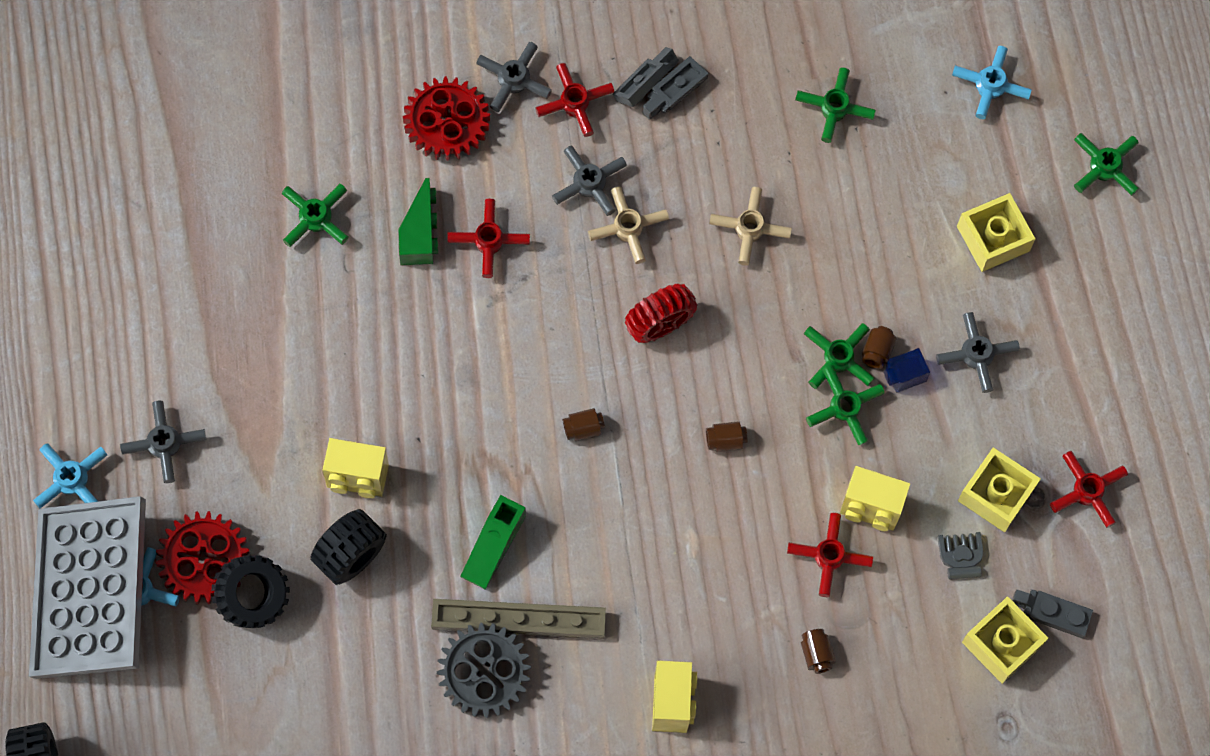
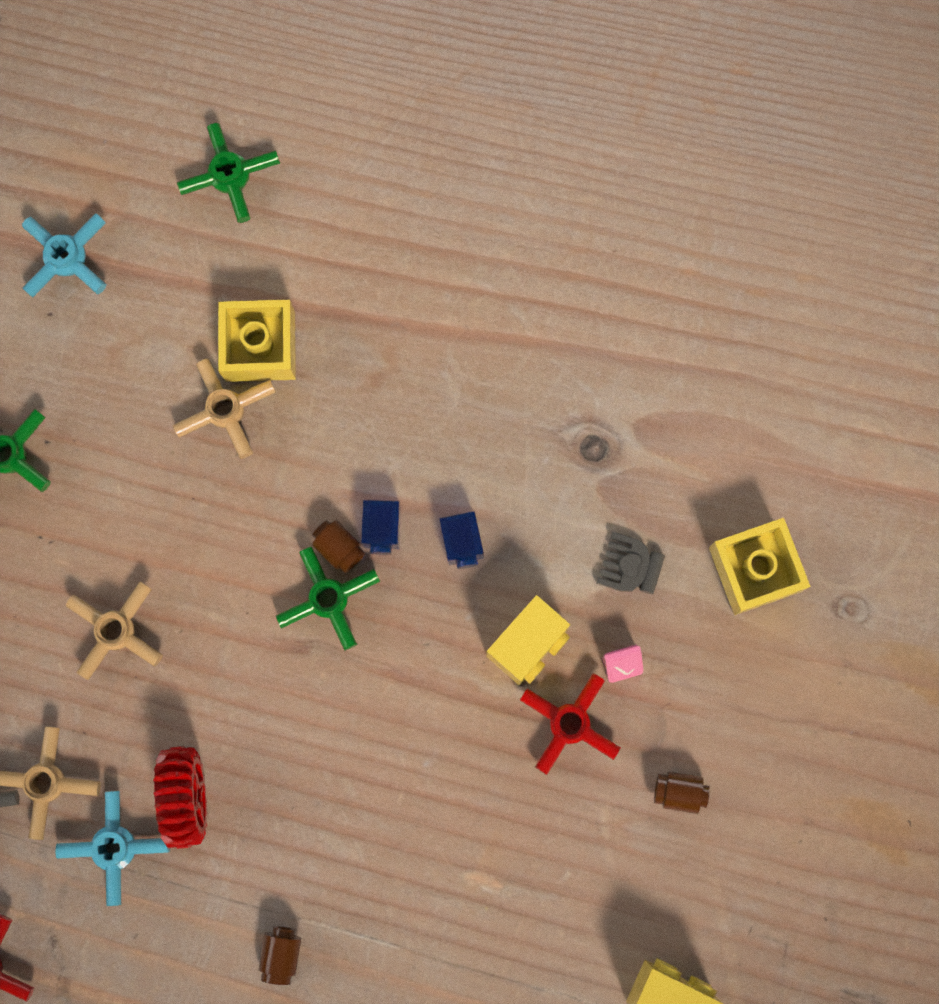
camera: 60 degrees left, 10 degrees up
(610, 281) = (98, 851): none -> medium azure bar
(726, 436) = (370, 783): reddish brown brick -> none
(855, 402) = (409, 620): green bar -> none
(890, 575) = (623, 663): none -> bright pink slope
(923, 428) = (462, 540): none -> clear blue brick
(934, 241) = (216, 397): none -> tan bar
(972, 358) = (392, 446): dark grey bar -> none
(998, 489) = (576, 487): light yellow brick -> none
(1054, 612) = (741, 491): dark grey hinge -> none
(1084, 498) = (615, 397): red bar -> none

